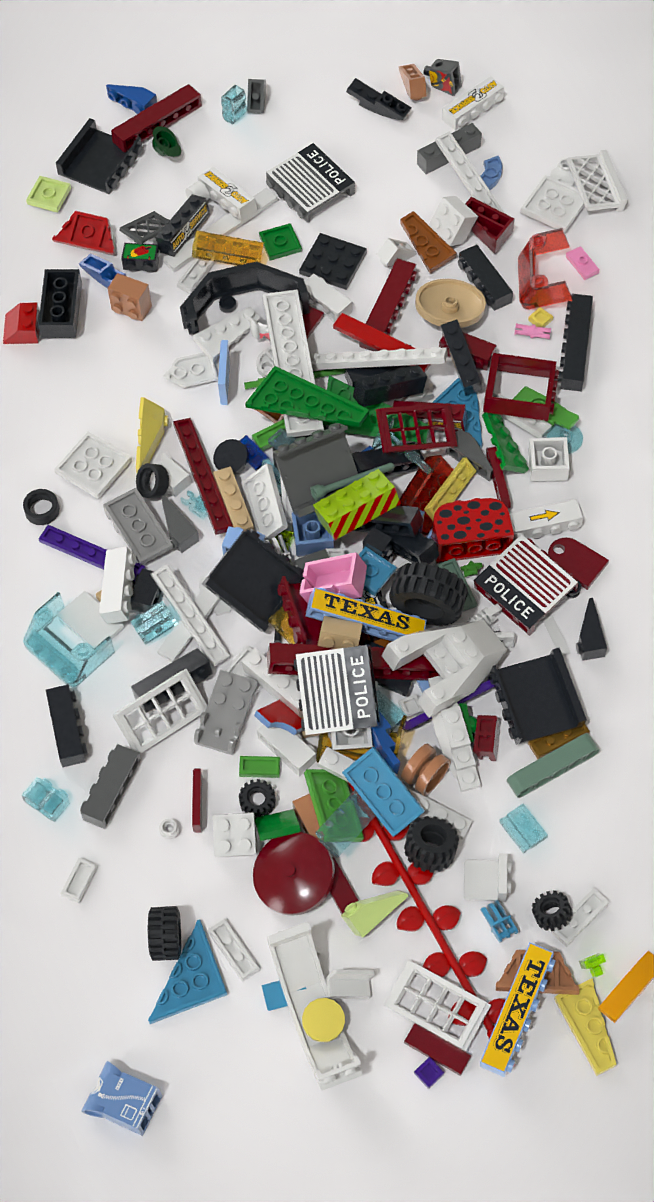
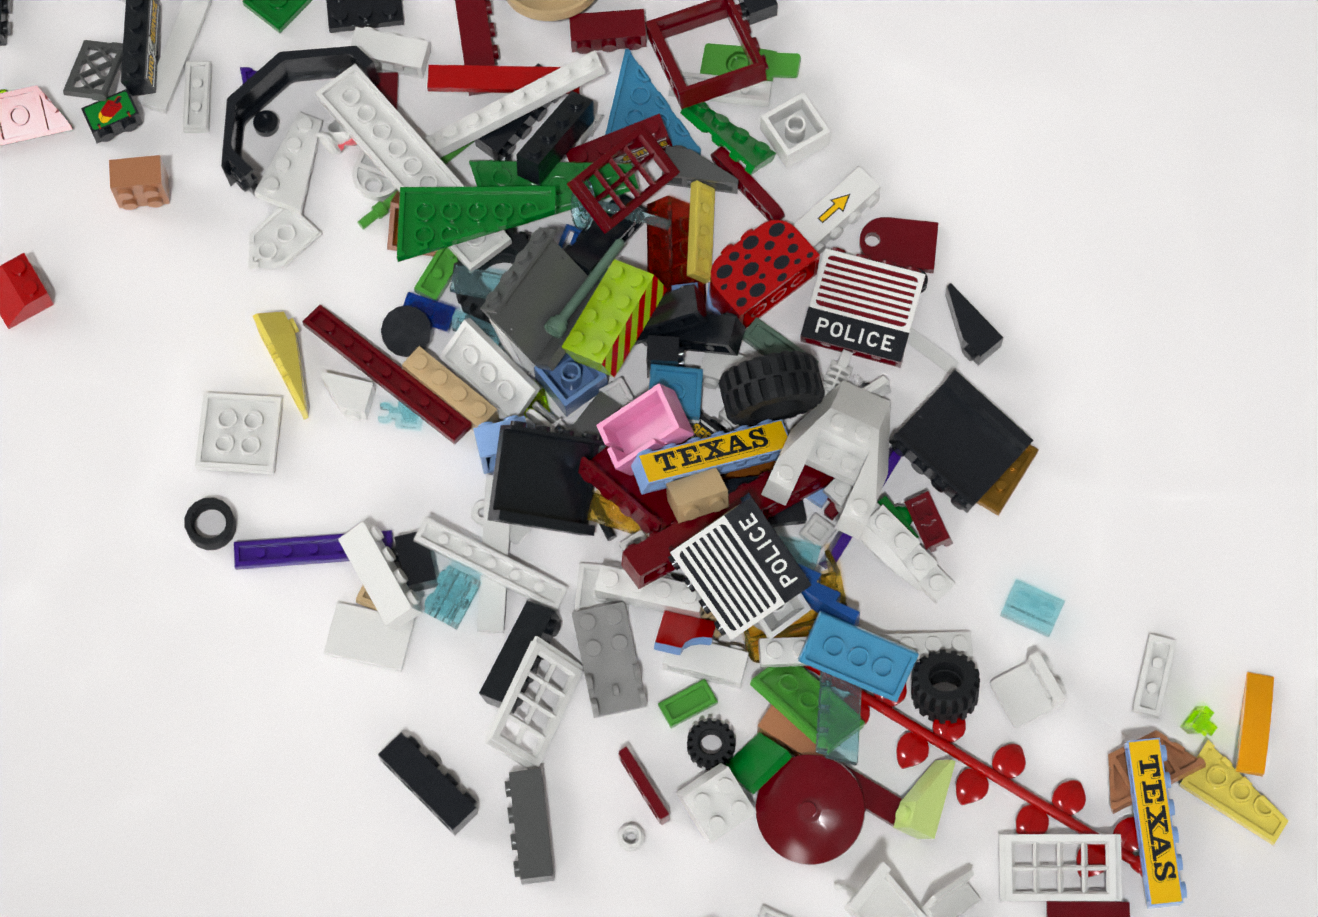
camera: 30 degrees left, 10 degrees up
(45, 798) = (464, 885): clear light blue brick -> none
(60, 303) = (52, 236): black brick -> none
(67, 664) = (356, 702): clear light blue windscreen -> none
(99, 269) = (75, 162): blue slope -> none
(137, 526) = (351, 484): light grey hinge -> none
(143, 481) = (320, 426): black tyre -> none
(180, 530) = (403, 460): dark grey slope -> none
(224, 369) = (328, 223): light blue tile -> none
(226, 249) = (221, 48): clear yellow brick -> none
(425, 769) = (886, 601): nougat wheel -> none
(461, 357) = (614, 50): black brick -> none
(471, 568) = (784, 320): bright green piece -> none
(498, 919) = (1065, 728): dark azure arm -> none
(552, 765) = (1022, 514): sand green beam -> none
(552, 920) = (1132, 697): black tyre -> none
(574, 436) = (782, 91): clear light blue dish -> none

